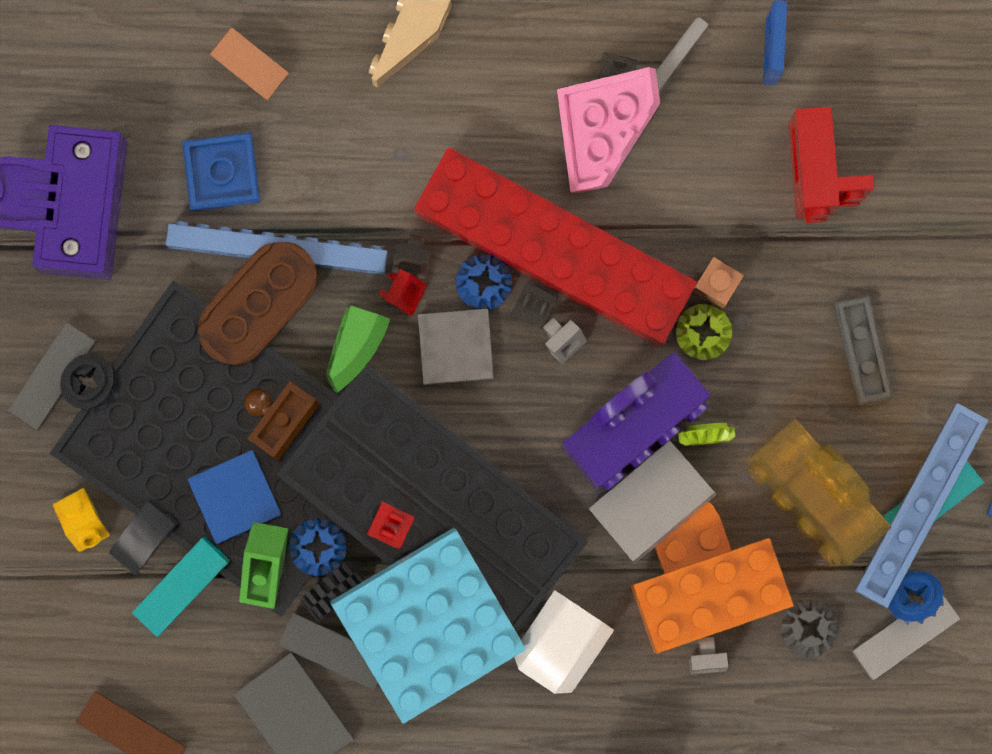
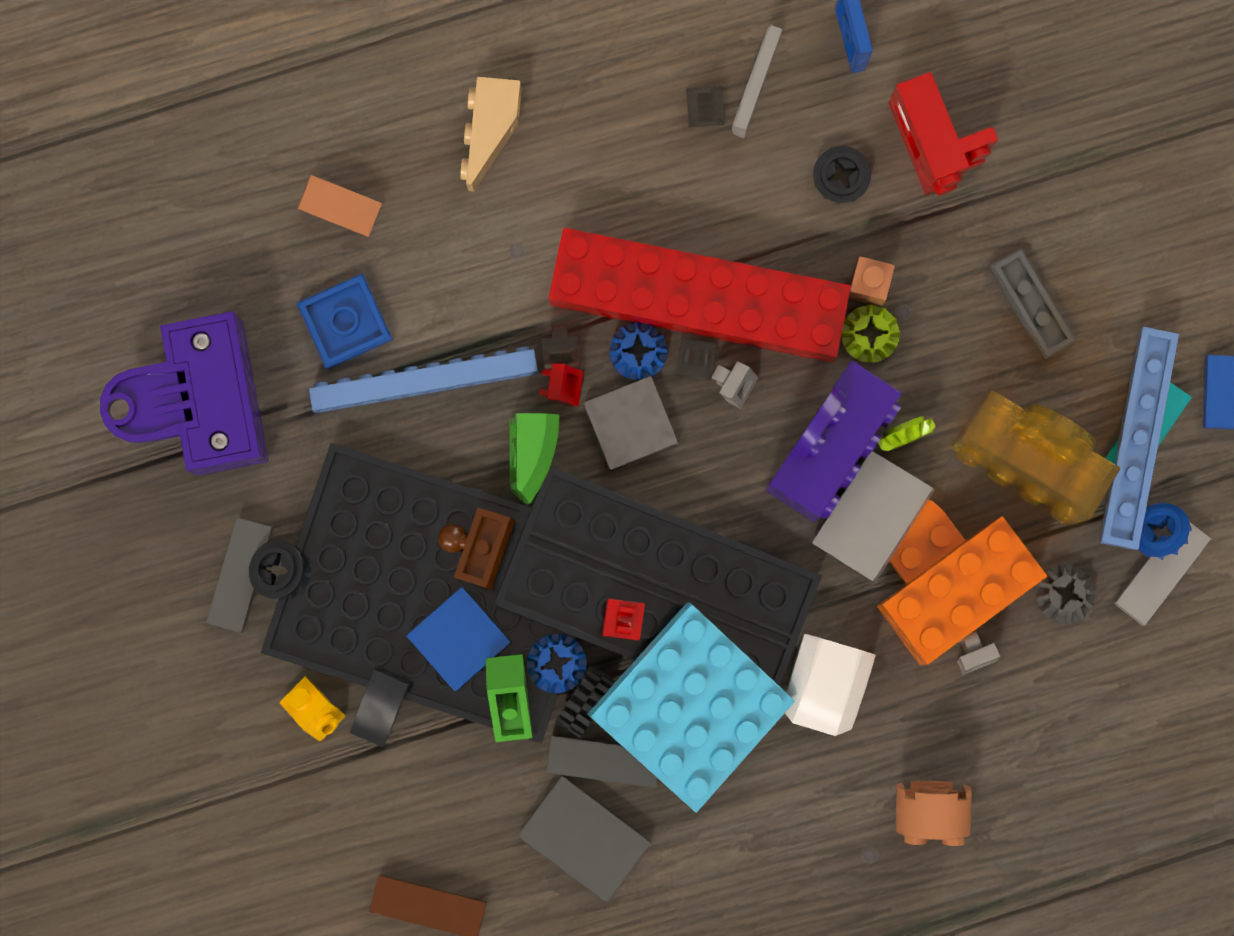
camera: 15 degrees left, 0 degrees up
(181, 586) = (432, 744): teal tile -> none
(257, 303) = (421, 439): reddish brown tile -> none
(603, 124) = (710, 157): bright pink plate -> none
(734, 164) = (847, 159): none -> black gear

